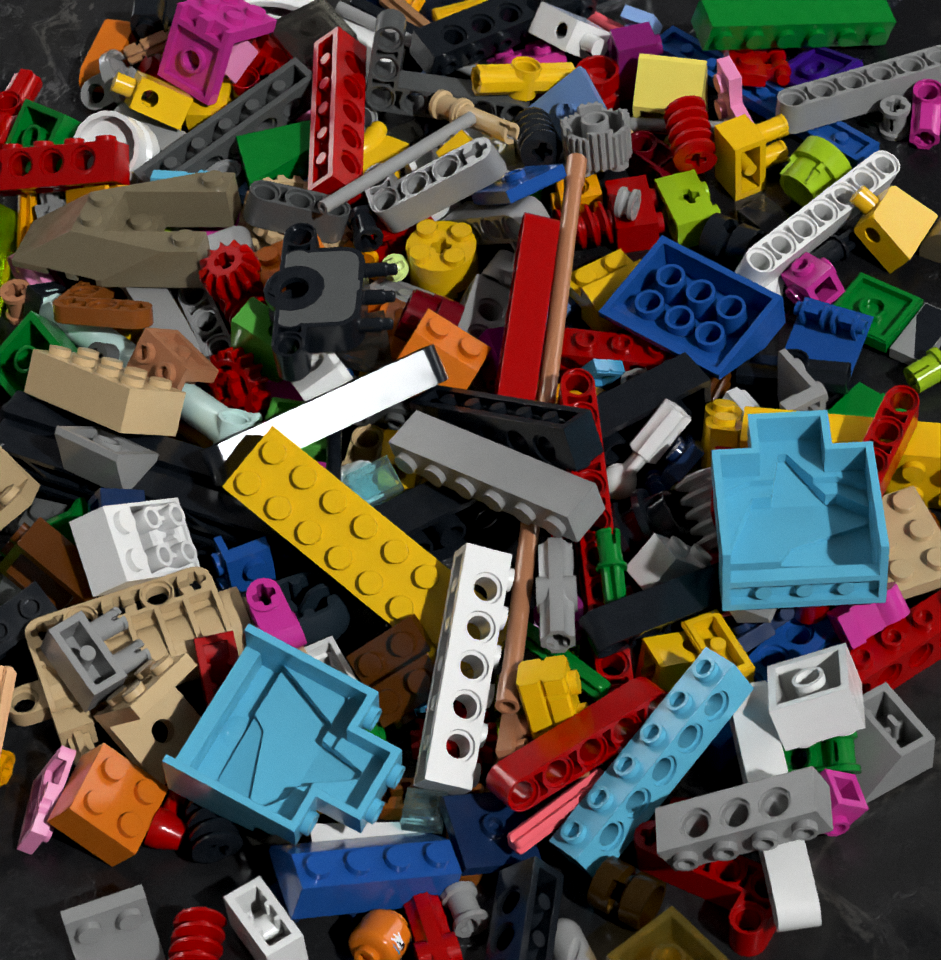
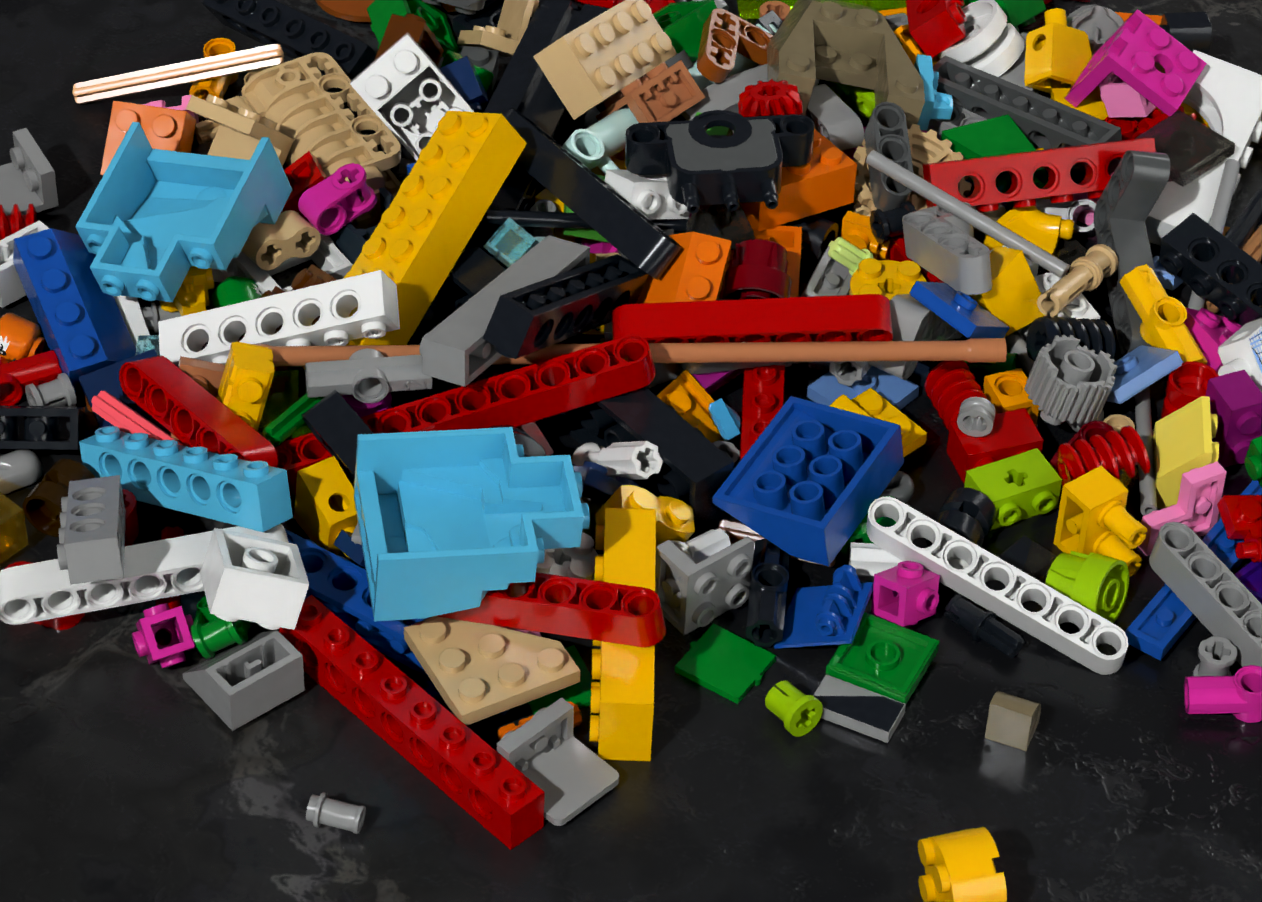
camera: 75 degrees right, 5 degrees down
(84, 660) = (269, 81): light grey brick -> none
(103, 456) = (510, 63): light grey slope -> none
(611, 564) = (409, 413): green axle -> none
(713, 632) = (320, 523): yellow slope -> none
(860, 621) = (392, 641): dark pink leg -> none
(891, 224) = (1010, 654): yellow torso -> none

